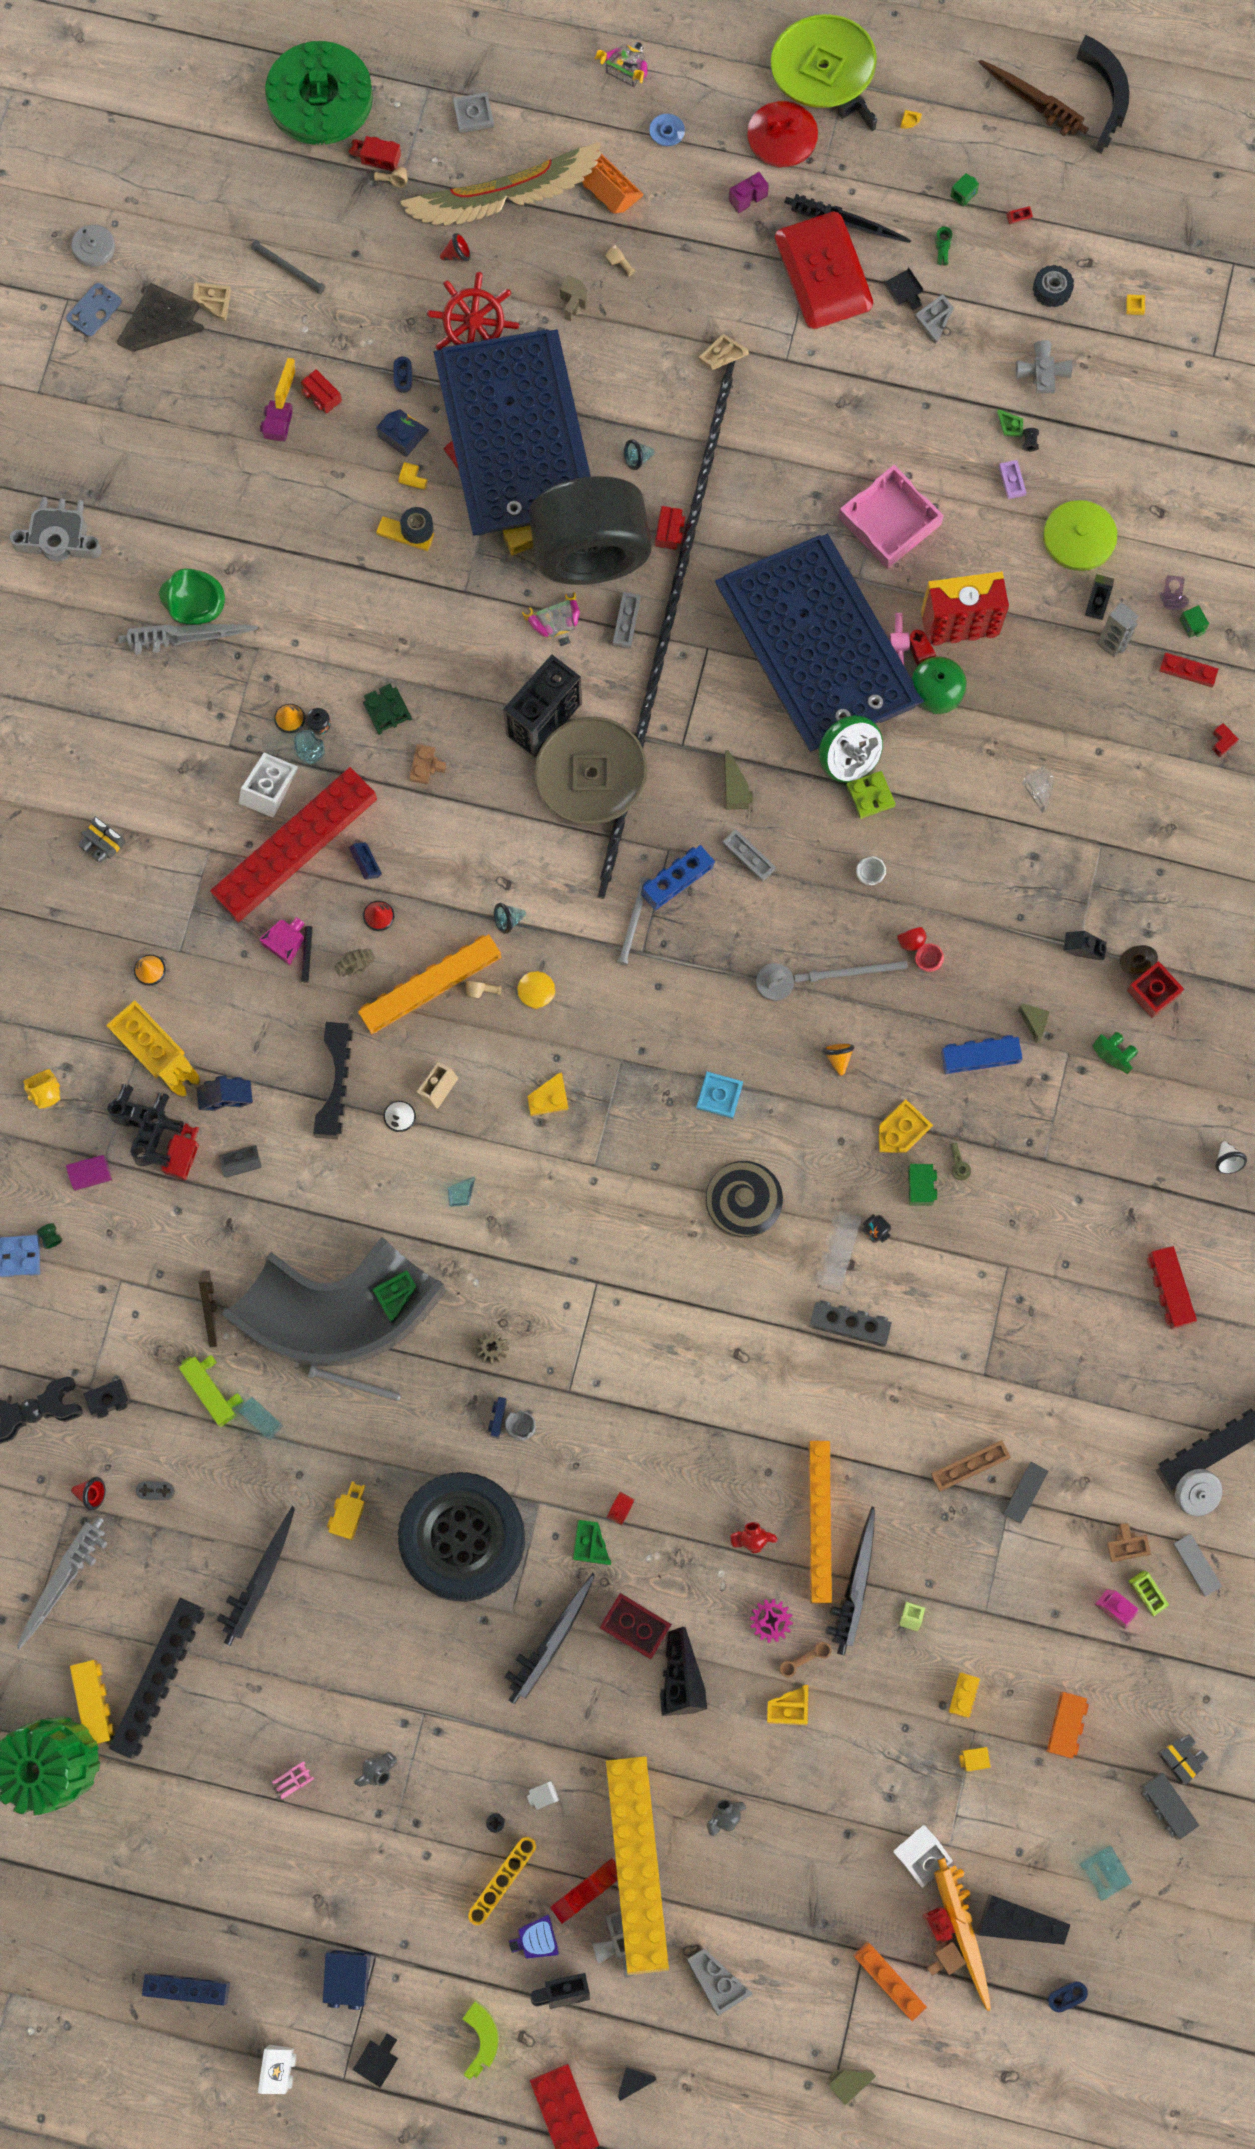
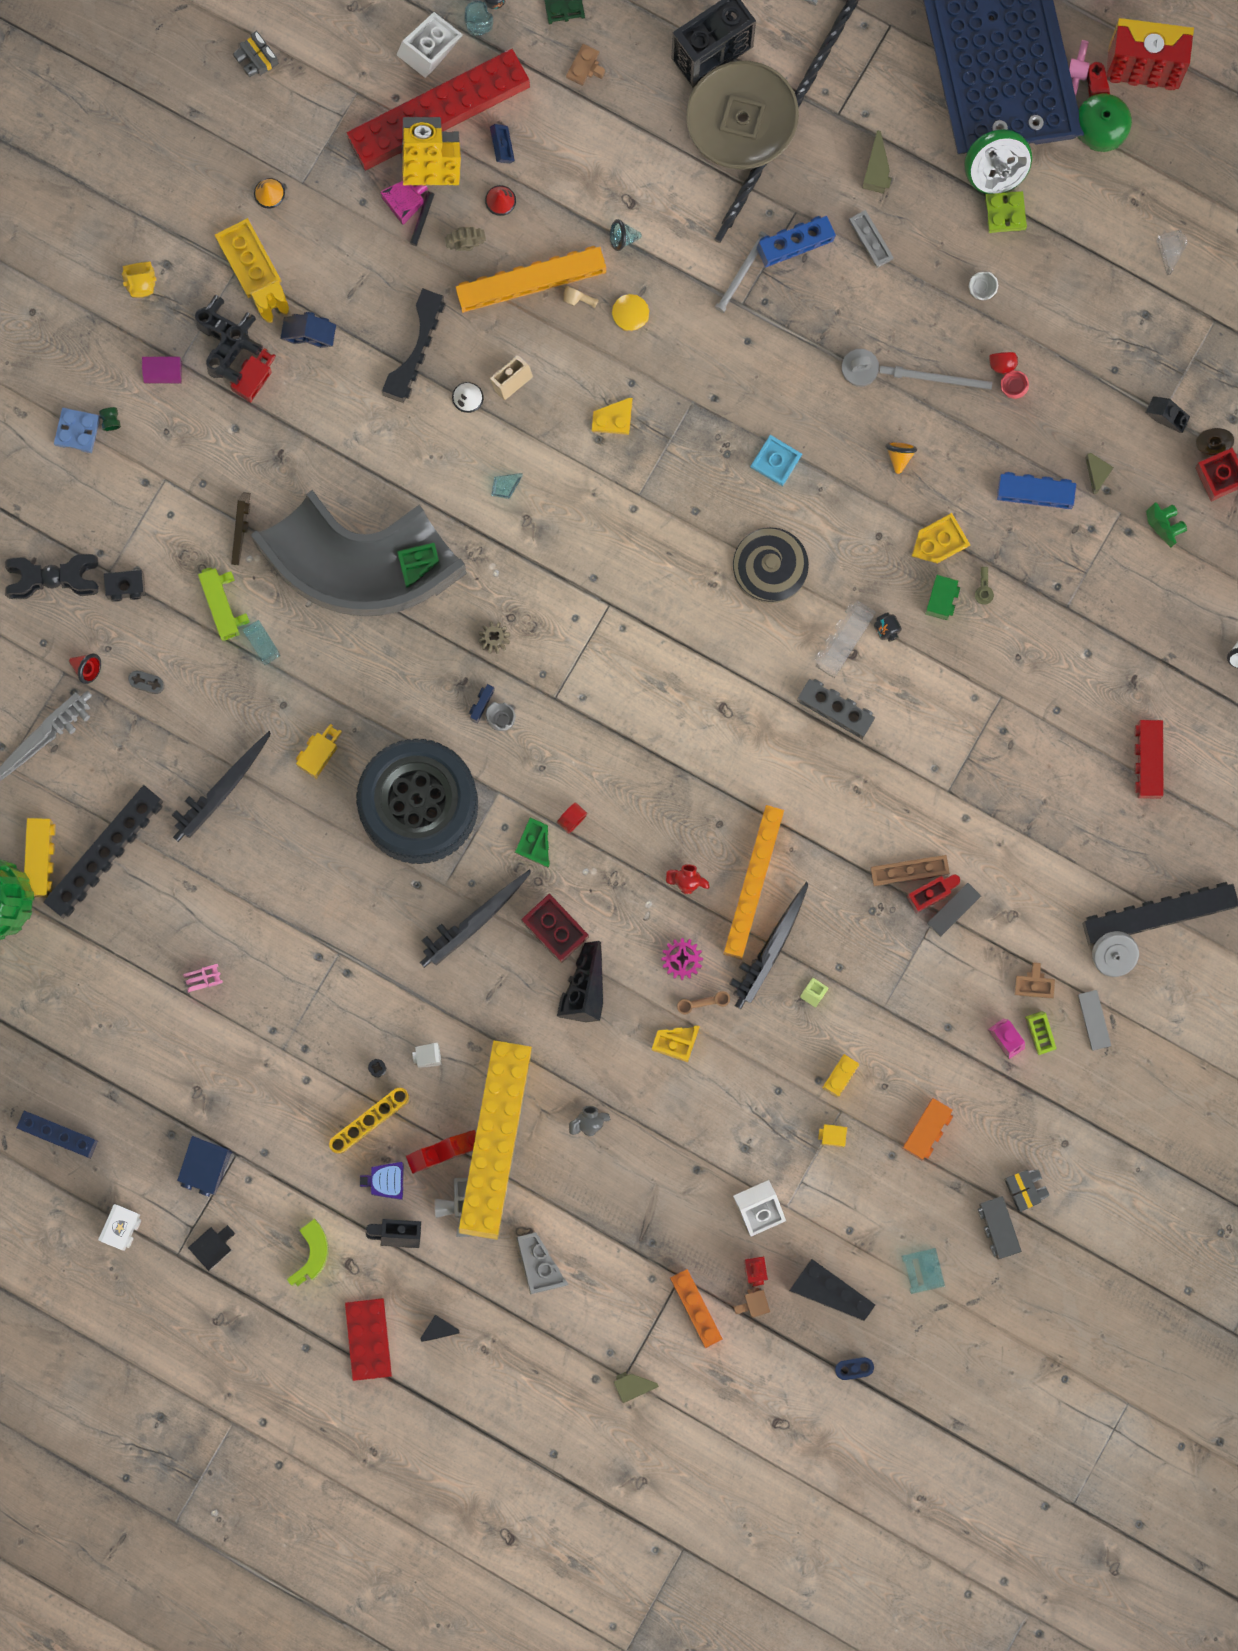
camera: 15 degrees right, 5 degrees up
(240, 1161) = (306, 398): dark grey slope -> none
(297, 888) = (429, 153): none -> yellow piece
(353, 1383) = (355, 634): light grey bar -> none
(376, 1770) = (281, 991): dark grey piece -> none
(961, 1920) = (777, 1277): light orange piece -> none
(1000, 1482) = (932, 892): none -> red brick

